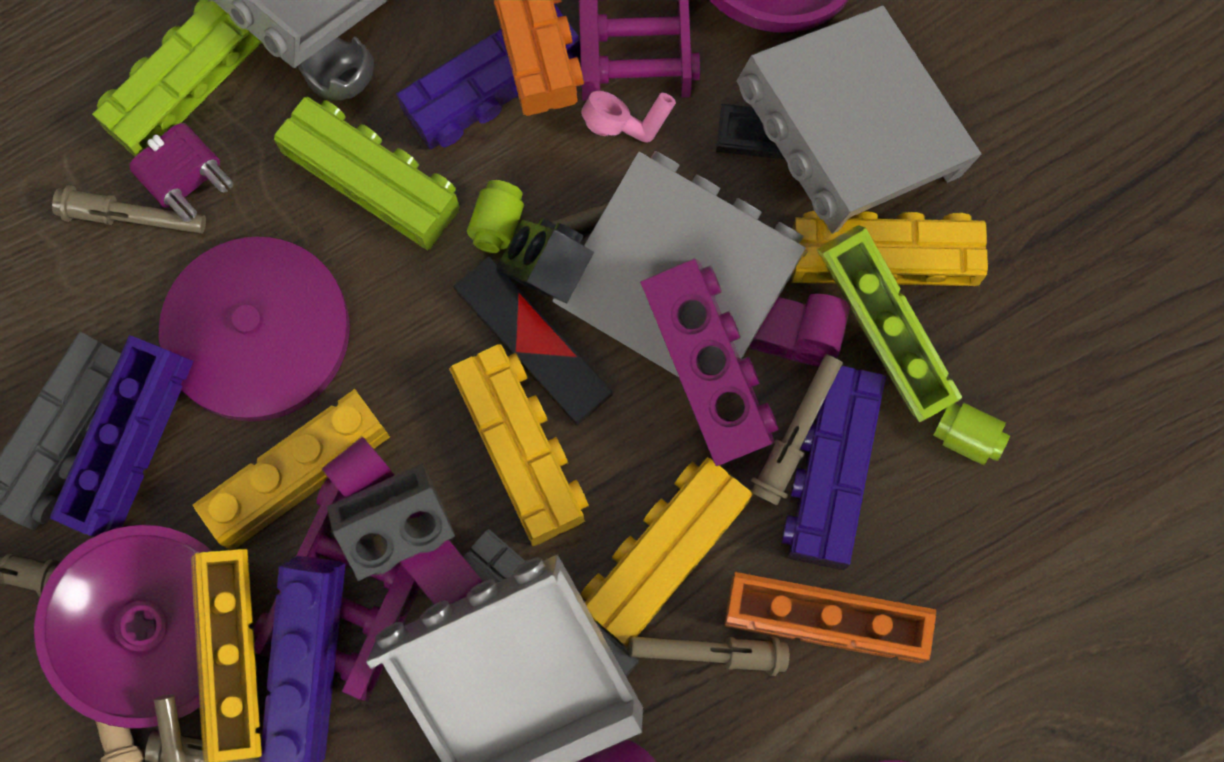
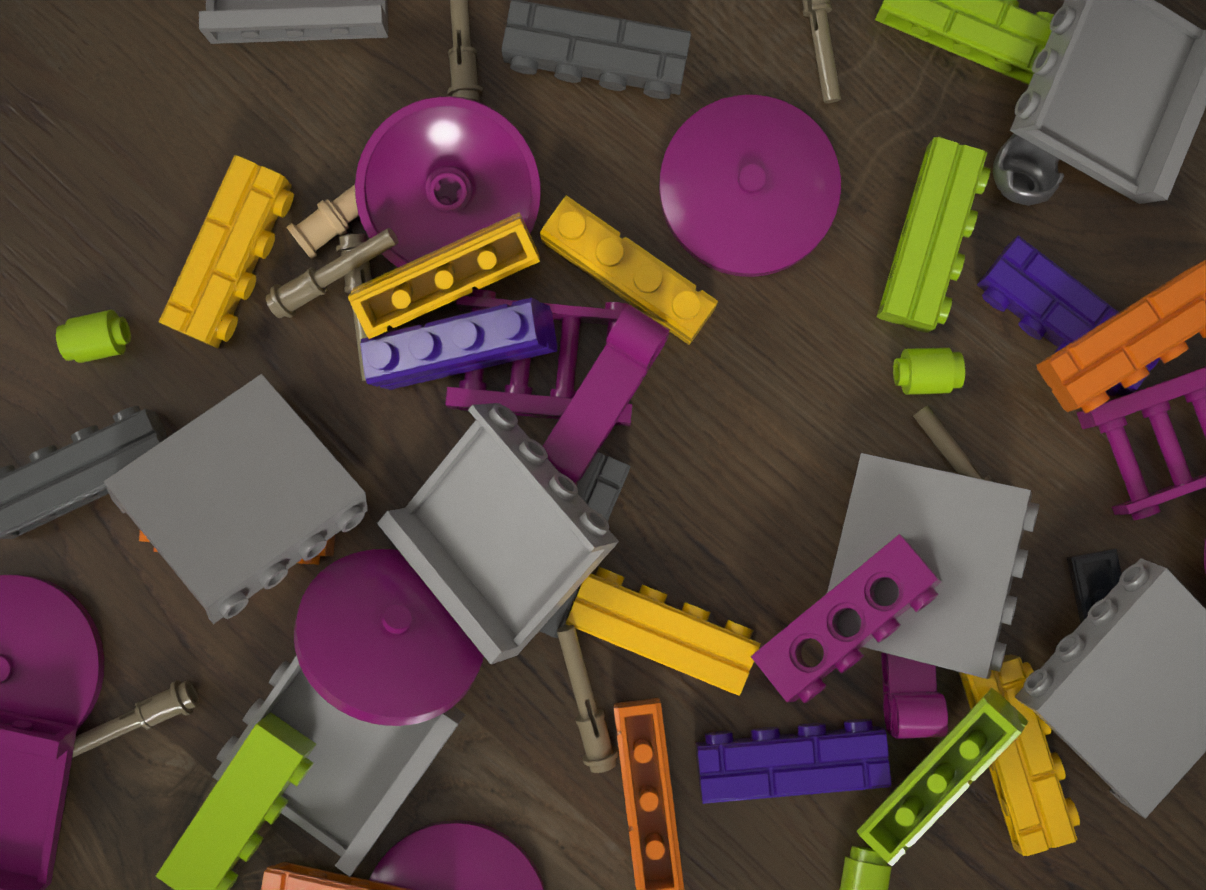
camera: 75 degrees right, 10 degrees up
(121, 438) = (606, 109): dark purple brick -> none
(176, 167) = (878, 54): magenta piece -> none
(386, 511) = (599, 383): dark grey brick -> none
(518, 445) = (718, 464): yellow brick -> none
(534, 341) = (821, 444): black tile -> none
(546, 258) = (898, 434): black brick -> none
(609, 116) = (1067, 445): bright pink plate -> none
(784, 457) = (766, 712): dark tan pin -> none

